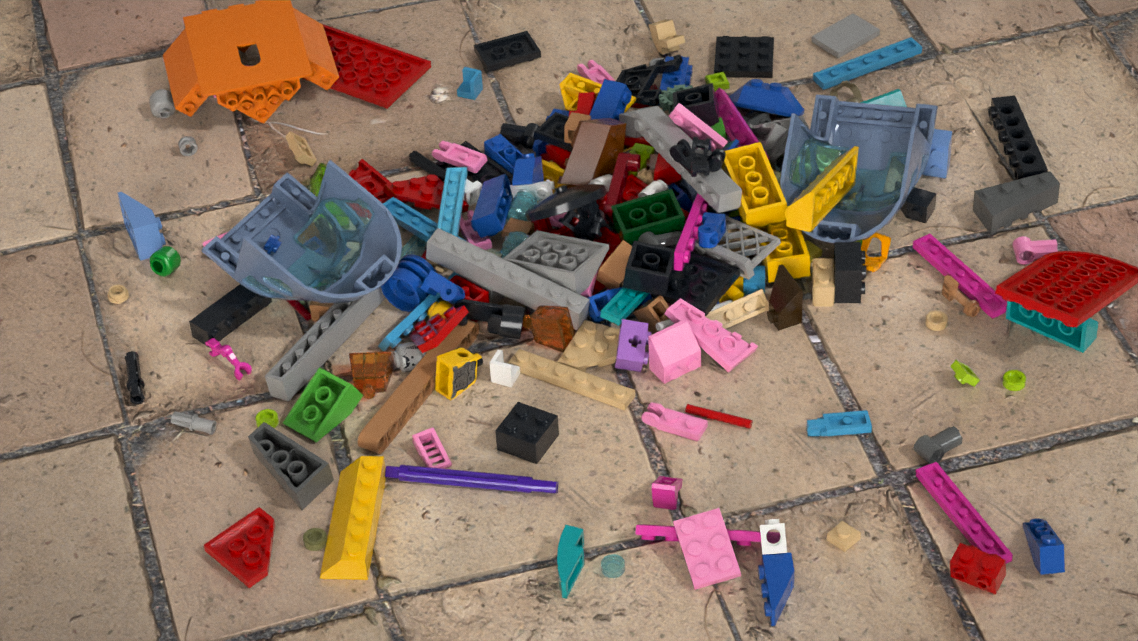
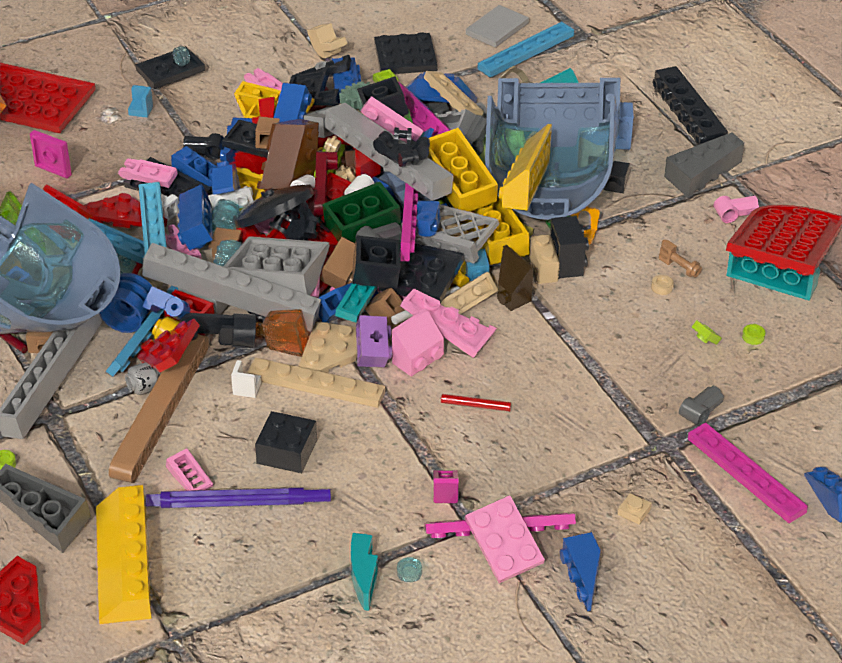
camera: 15 degrees left, 0 degrees up
(315, 539) = (84, 582): olive tile -> none
(322, 405) = (62, 439): bright green slope -> none
(371, 129) = (50, 154): none -> dark pink tile
(371, 372) = (105, 399): clear orange torso -> none
(427, 165) = (116, 185): black axle -> none
(456, 372) = (197, 388): yellow torso -> none
(518, 40) = (181, 55): none -> clear light blue tile
(638, 147) = (332, 145): none -> tan plate
(674, 422) = (433, 413): bright pink hinge -> none
(770, 102) = (451, 92): none -> tan plate
(779, 547) = (579, 527): white brick -> none
(840, 424) = (599, 396): dark azure hinge -> none
(968, 281) = (686, 246): dark pink plate -> none
(978, 568) = (779, 524): red brick -> none

